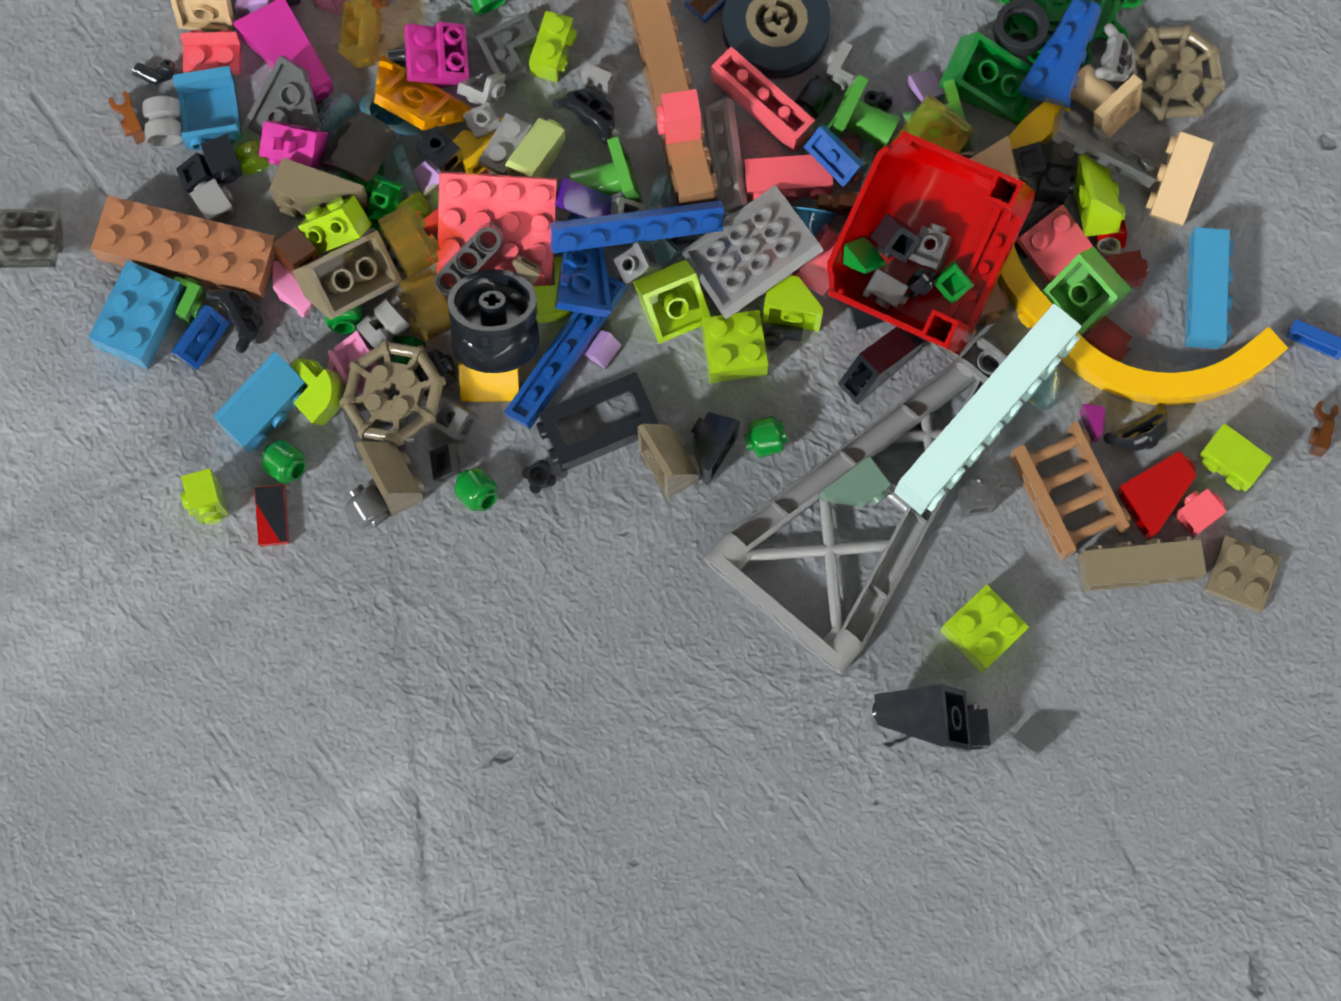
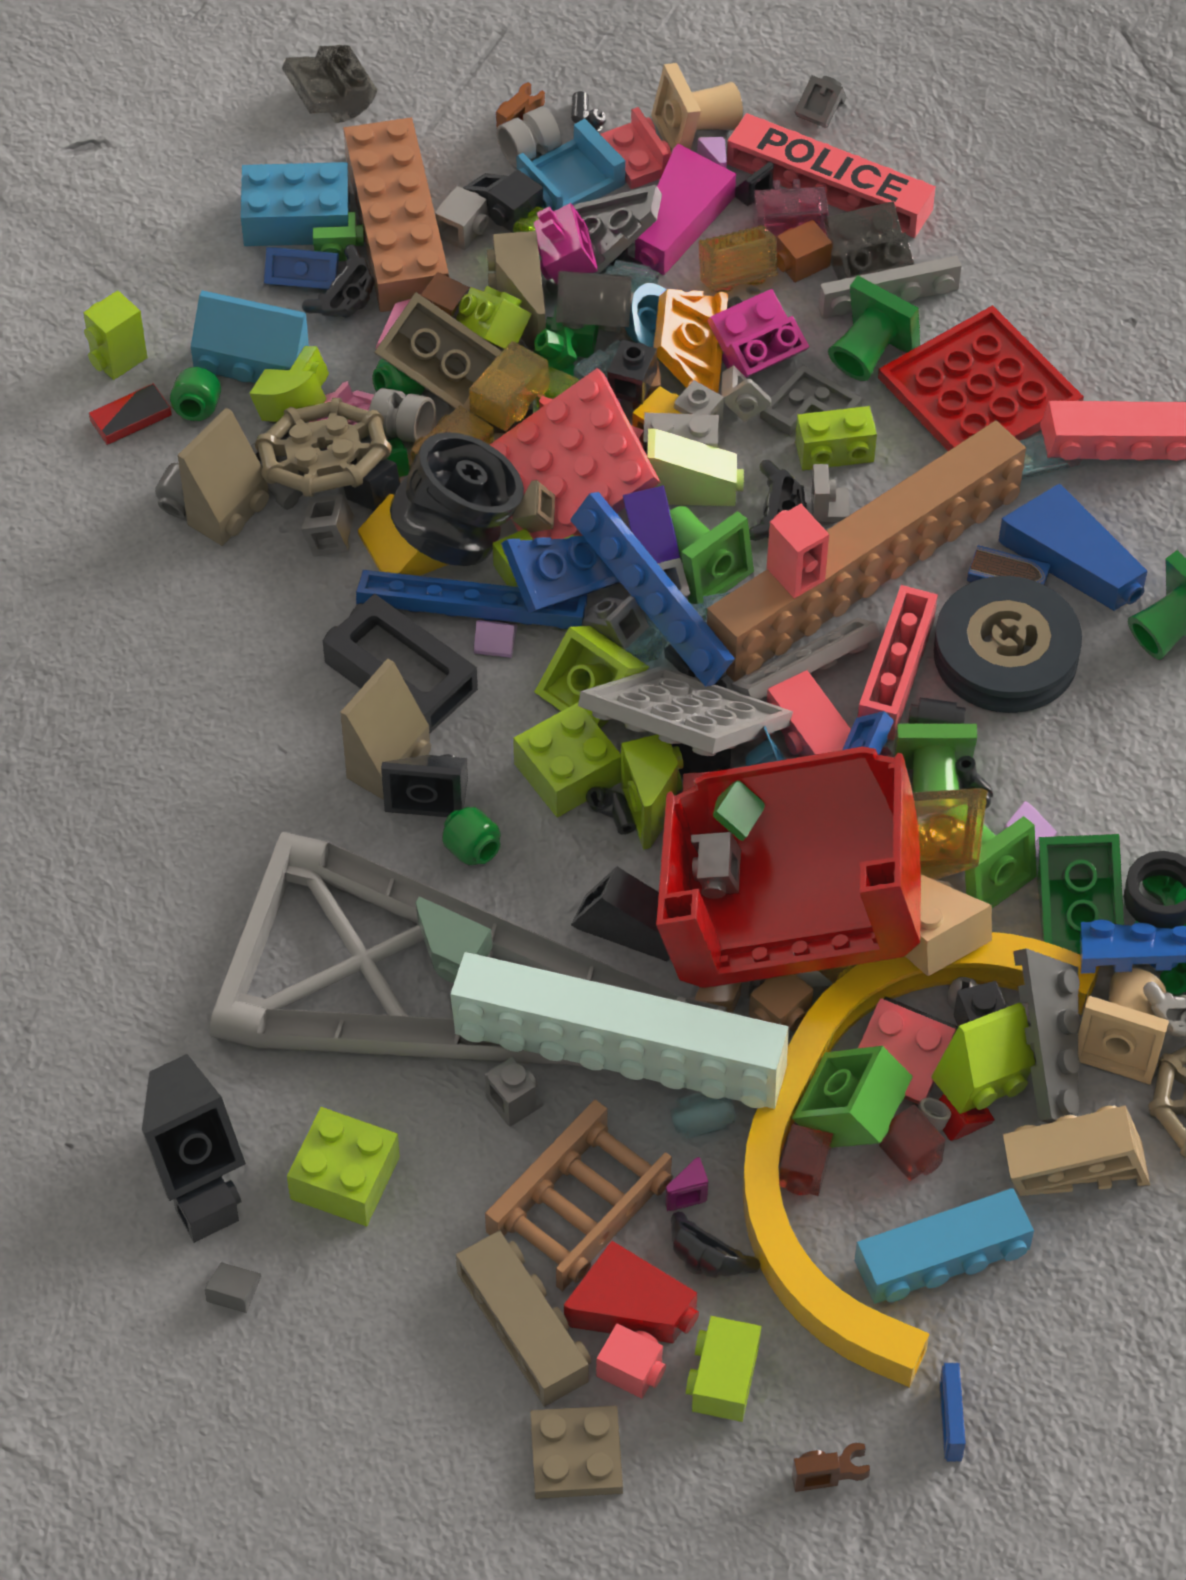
camera: 65 degrees right, 20 degrees down
(445, 462) = (273, 541): black plate -> none
(474, 245) = (527, 445): dark grey beam -> none
(476, 489) = (254, 580): green head -> none
(531, 472) = (304, 629): black plate -> none
(837, 62) = (997, 727): light grey bracket -> none
(895, 238) = (780, 833): black brick -> none
(921, 282) = (744, 893): black plate -> none
(935, 257) = (793, 881): flat silver brick -> none
(952, 282) = (764, 924): green slope -> none
(1030, 160) = (986, 960): black plate -> none

